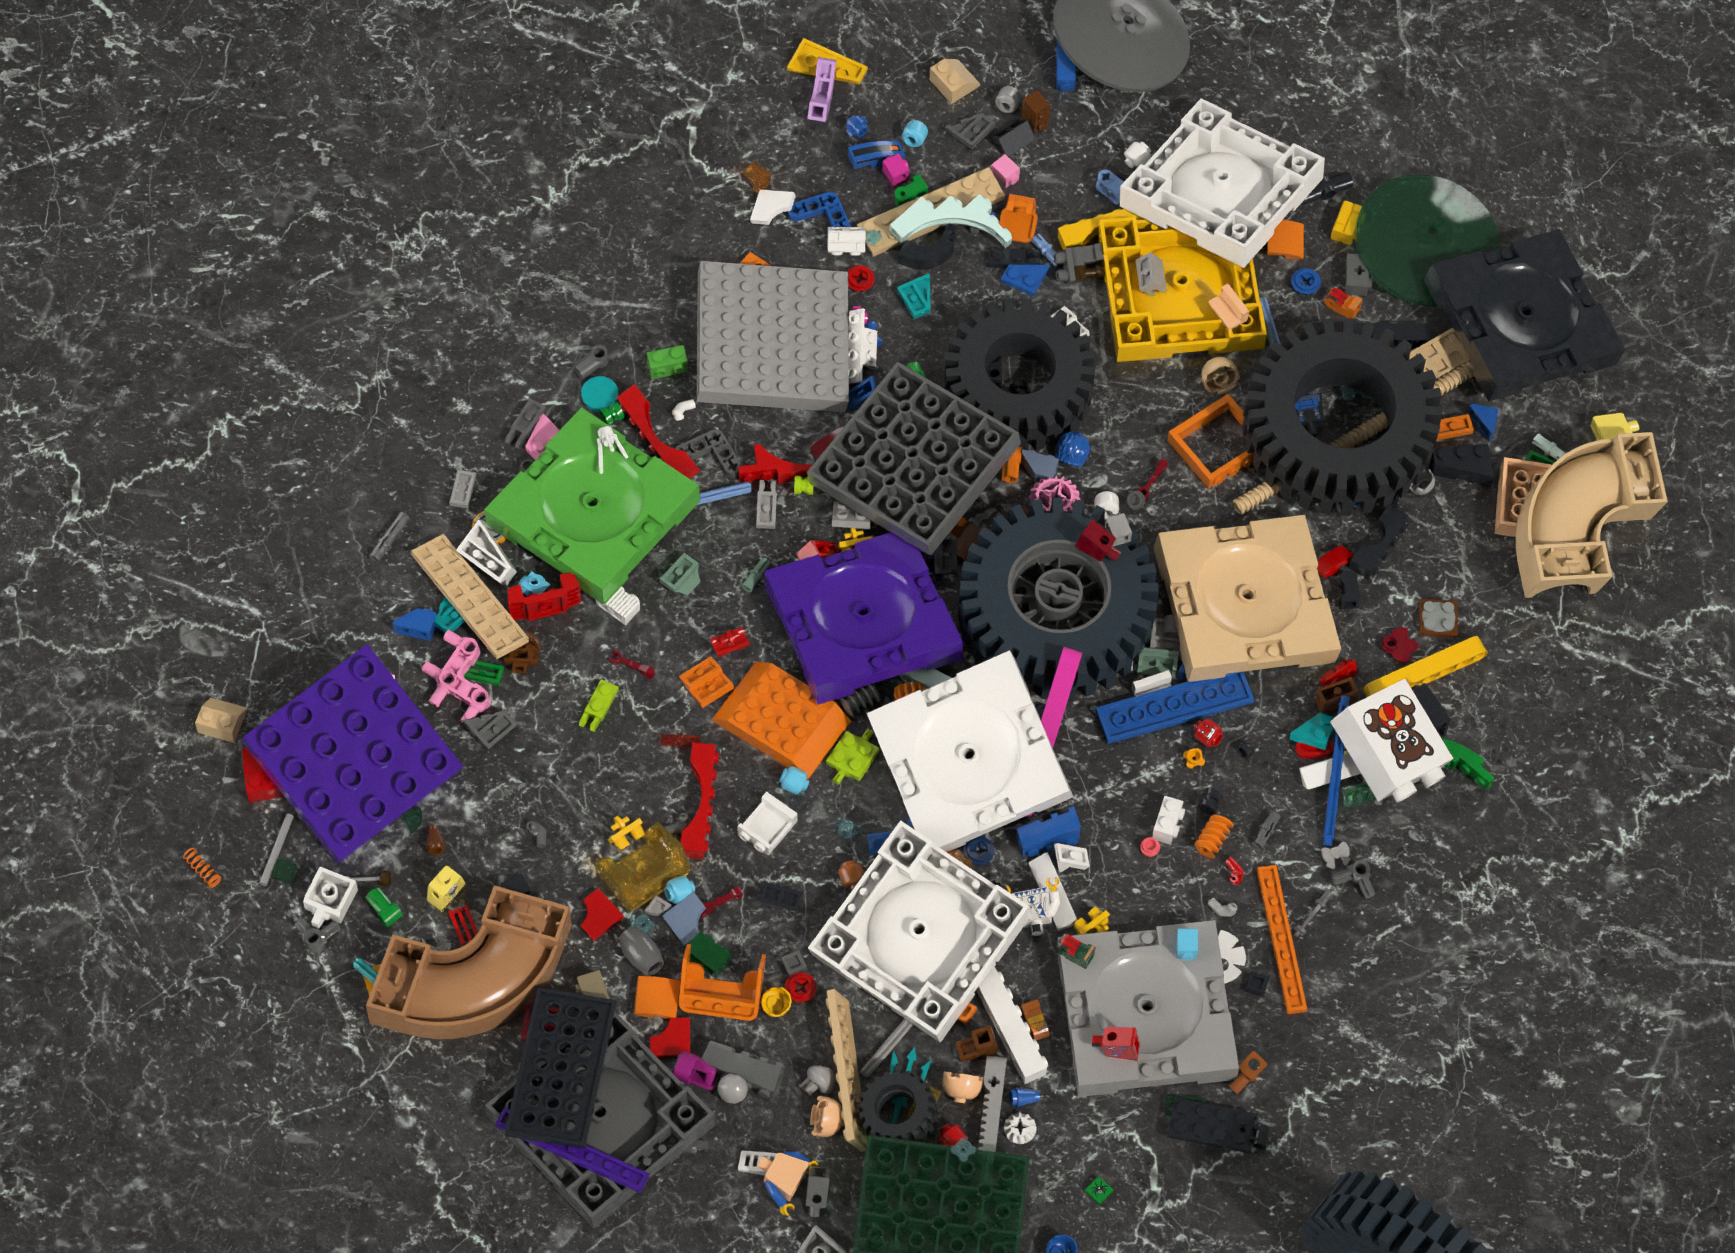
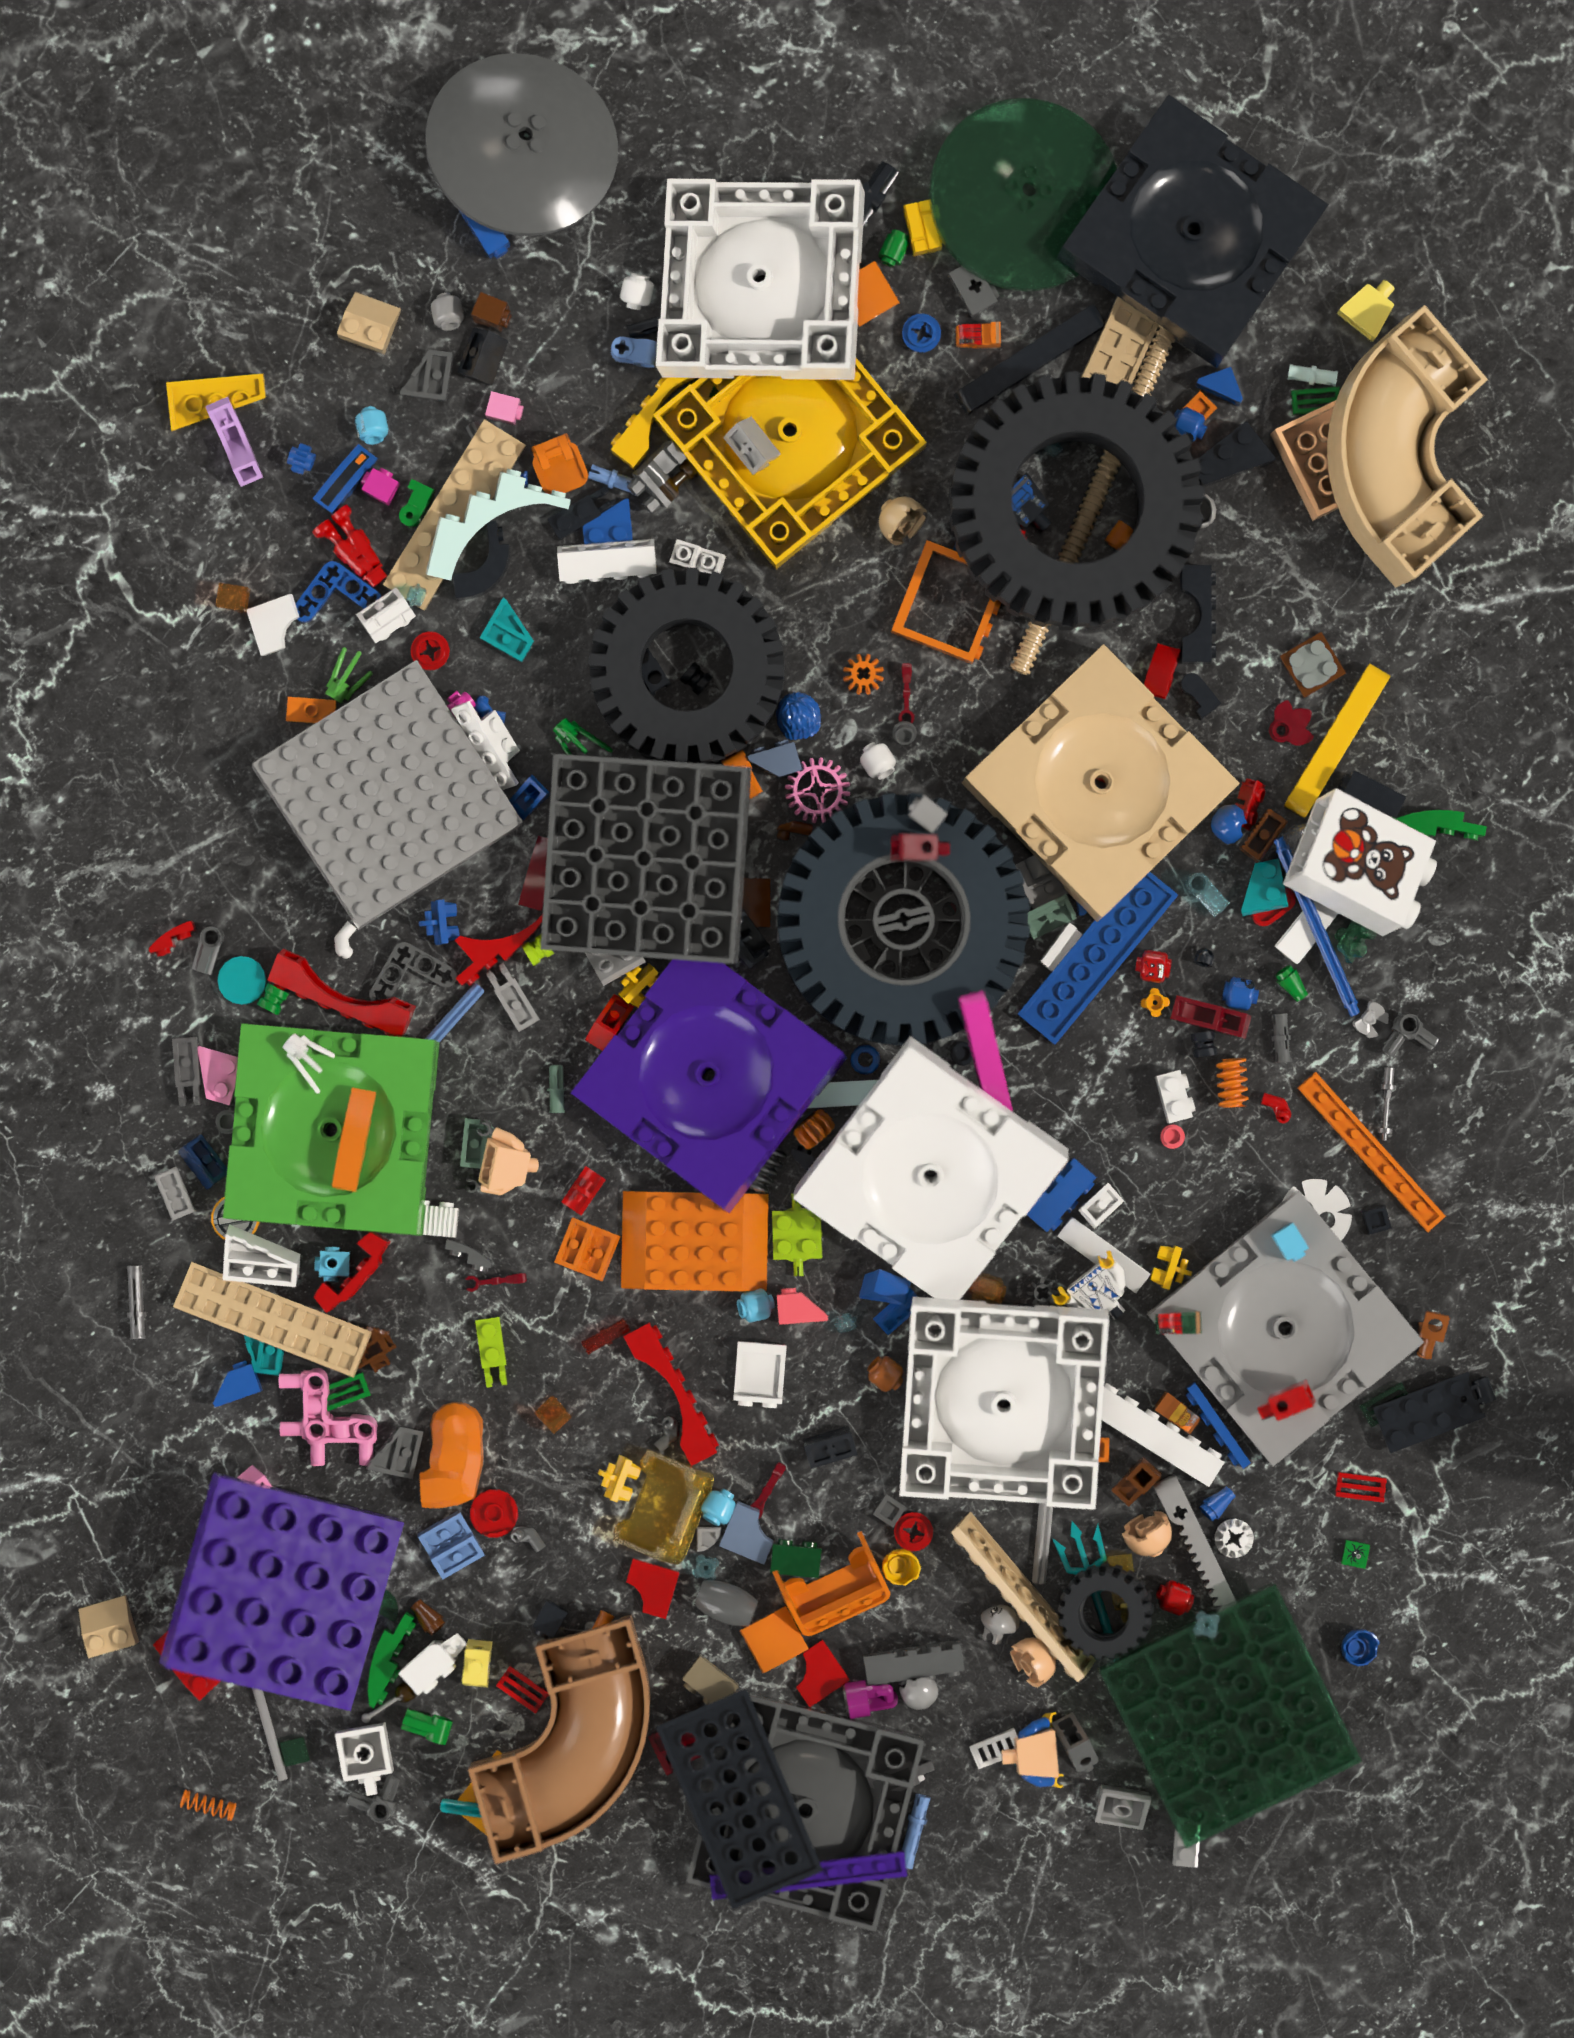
camera: 30 degrees left, 25 degrees up
(381, 852) = (383, 1668): none -> green slope
(416, 865) = (432, 1662): none -> white hinge
(483, 806) = (450, 1544): none -> medium blue slope
(494, 481) = (203, 1161): none -> dark blue slope
(524, 752) = (454, 1457): none -> orange piece
(526, 805) = (494, 1513): none -> red tile
(568, 341) = (166, 942): none -> red slope
(602, 510) = (354, 1139): none -> orange slope
(610, 768) = (553, 1414): none -> clear orange panel
(628, 639) = (476, 1258): none -> dark grey slope
(667, 362) = (291, 897): bright green brick -> none
(672, 1174) = (915, 1826): none -> medium blue pin
(689, 592) = (503, 1163): none -> light nougat torso
(757, 427) = (436, 922): none -> blue hips
(786, 262) = (338, 688): none -> bright green plant
(820, 795) = (798, 1308): none -> coral slope
(853, 195) = (354, 550): none -> red piece
(888, 817) = (884, 1287): none -> blue slope
(985, 845) = (1009, 1261): dark blue gear -> none
(1006, 287) = (606, 560): none -> white brick
(1057, 1053) = (1222, 1434): none -> blue plate
(1123, 1133) = (1381, 1489): none -> red tile
(1132, 450) = (863, 665): none -> orange gear
(1222, 910) = (1292, 1159): light grey arm -> none
(1229, 308) = (867, 439): light nougat panel -> none
(1233, 794) = (1211, 1017): none -> dark red slope
(1255, 785) = (1240, 993): none -> blue head
(1269, 323) = (920, 421): medium blue axle -> none
(1274, 711) = (1207, 895): none -> clear light blue piece
(1296, 799) = (1291, 982): none -> green cone
(1315, 675) = (1227, 823): none -> blue hair
(1320, 224) = (894, 248): none -> green brick
(1449, 425) = (1190, 422): none -> blue head

